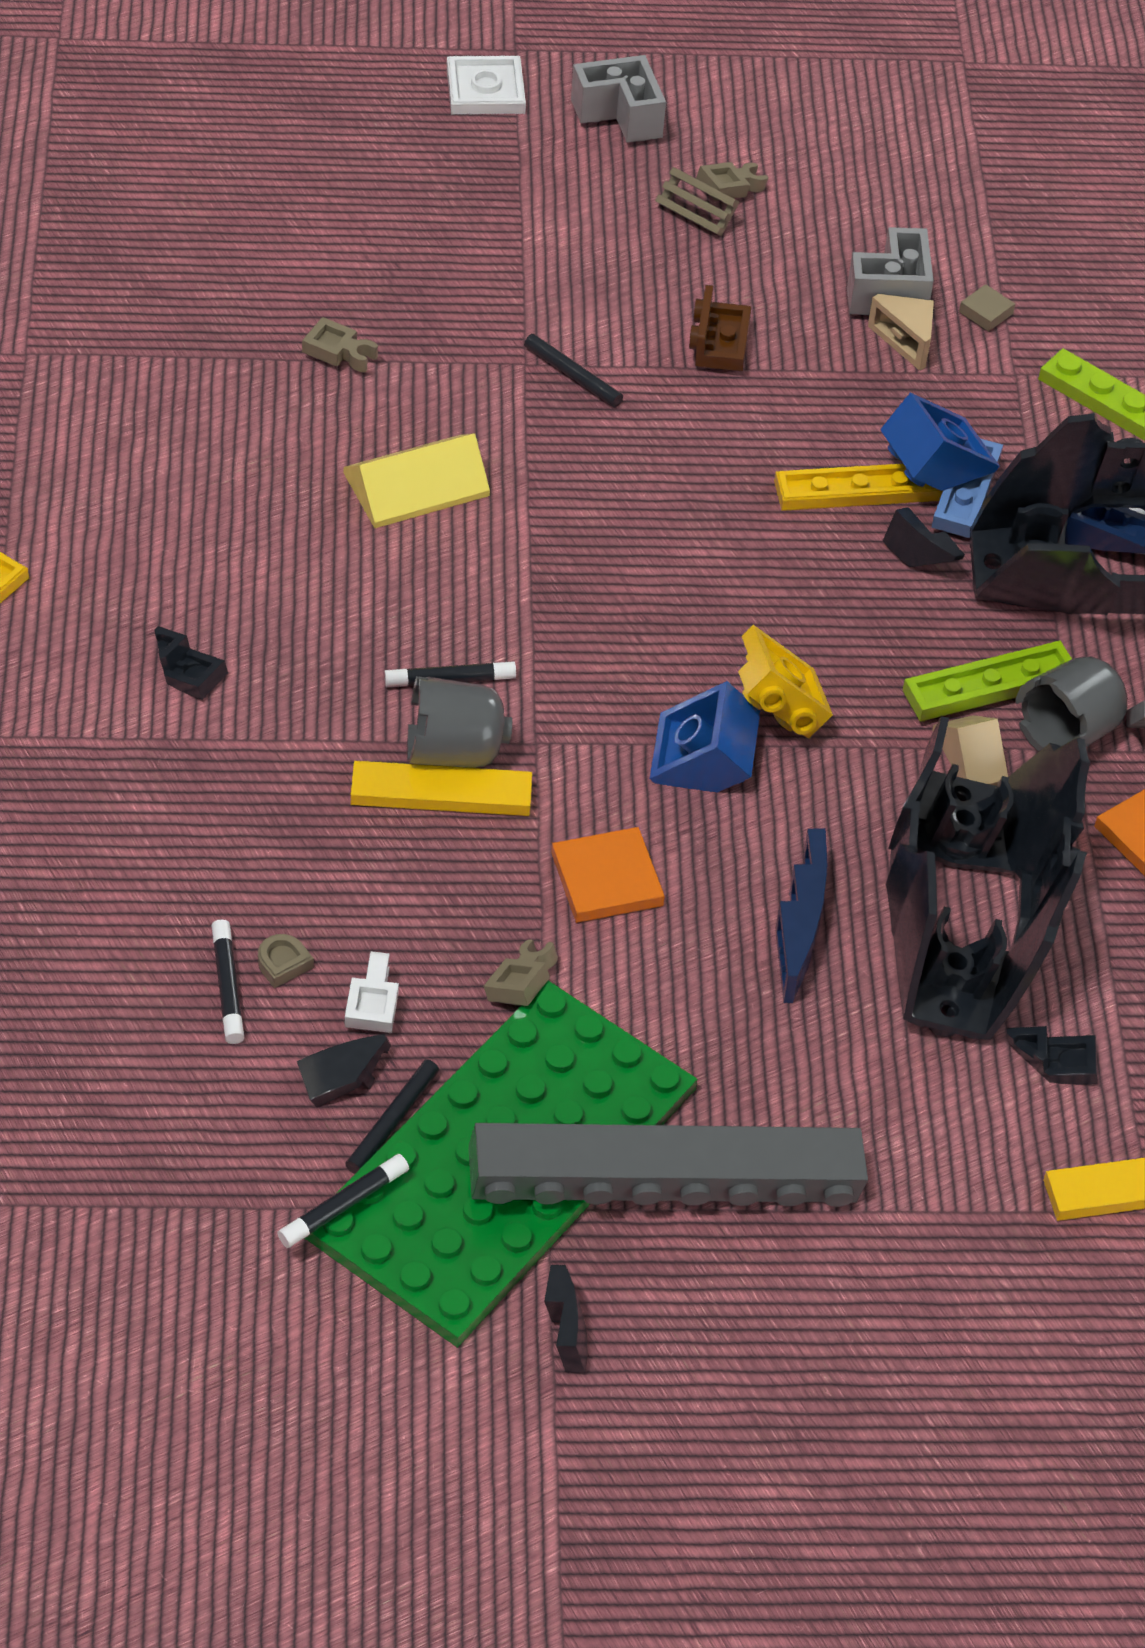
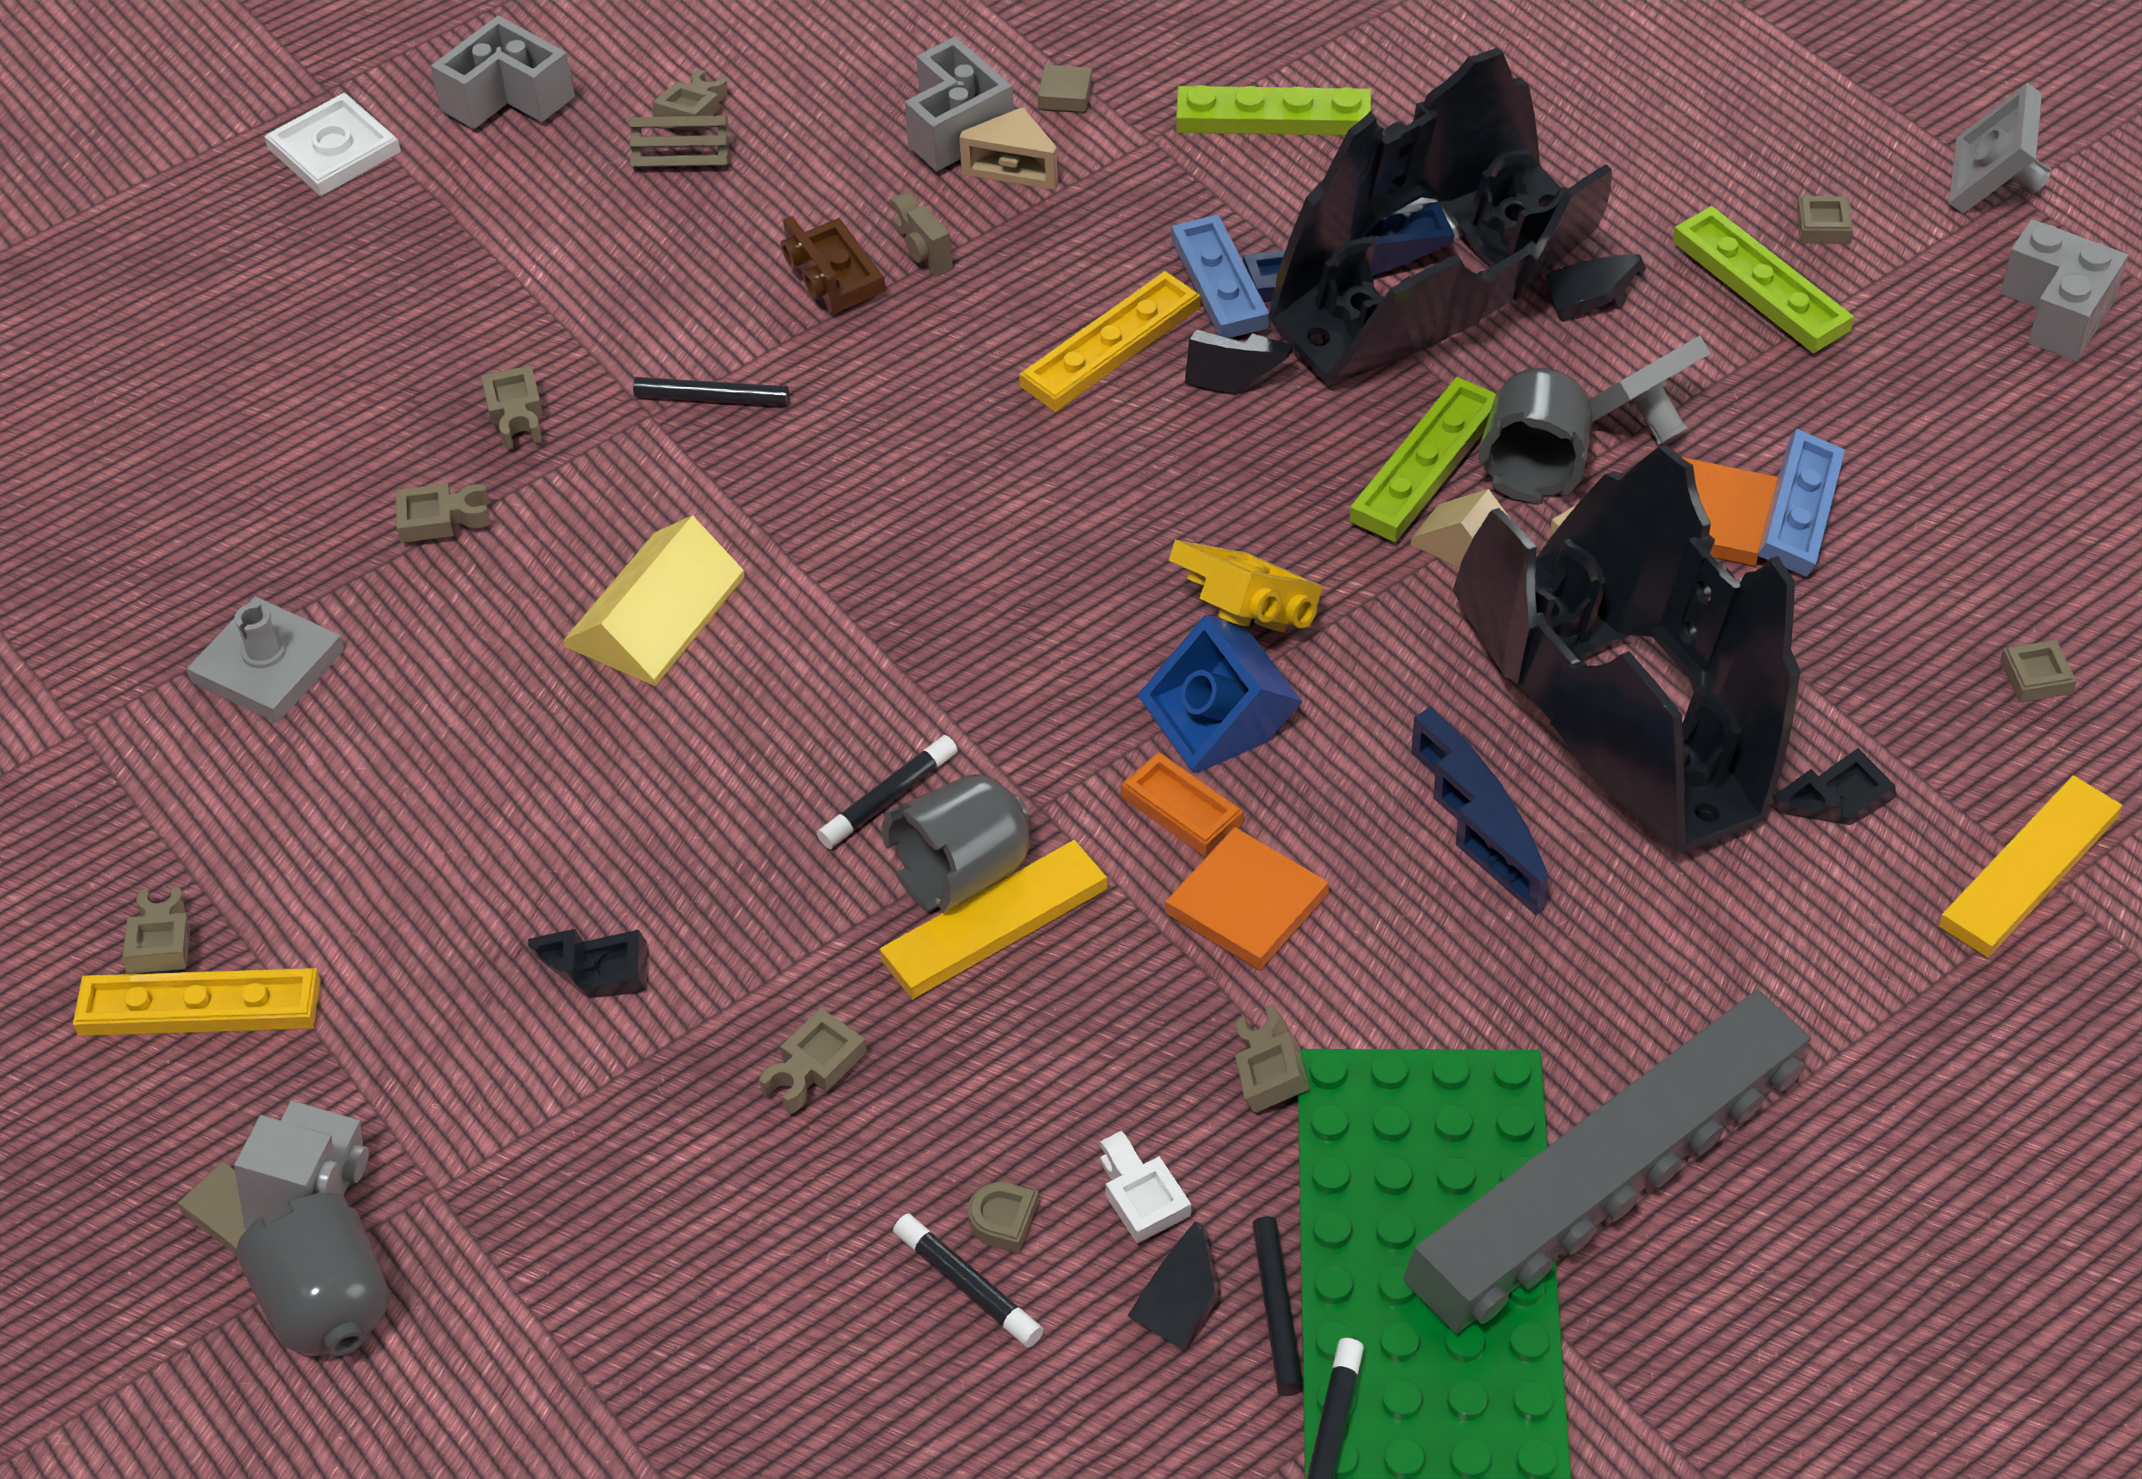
camera: 30 degrees left, 0 degrees up
(163, 373) = (265, 659): none -> light grey tile
(259, 796) = (814, 1054): none -> dark tan plate
(443, 304) = (513, 402): none -> dark tan plate
(565, 1309) = (1649, 1377): black slope -> none
(623, 793) = (1181, 803): none -> orange tile
(795, 350) = (925, 236): none -> dark tan plate
(936, 445) = (1164, 252): blue slope -> none

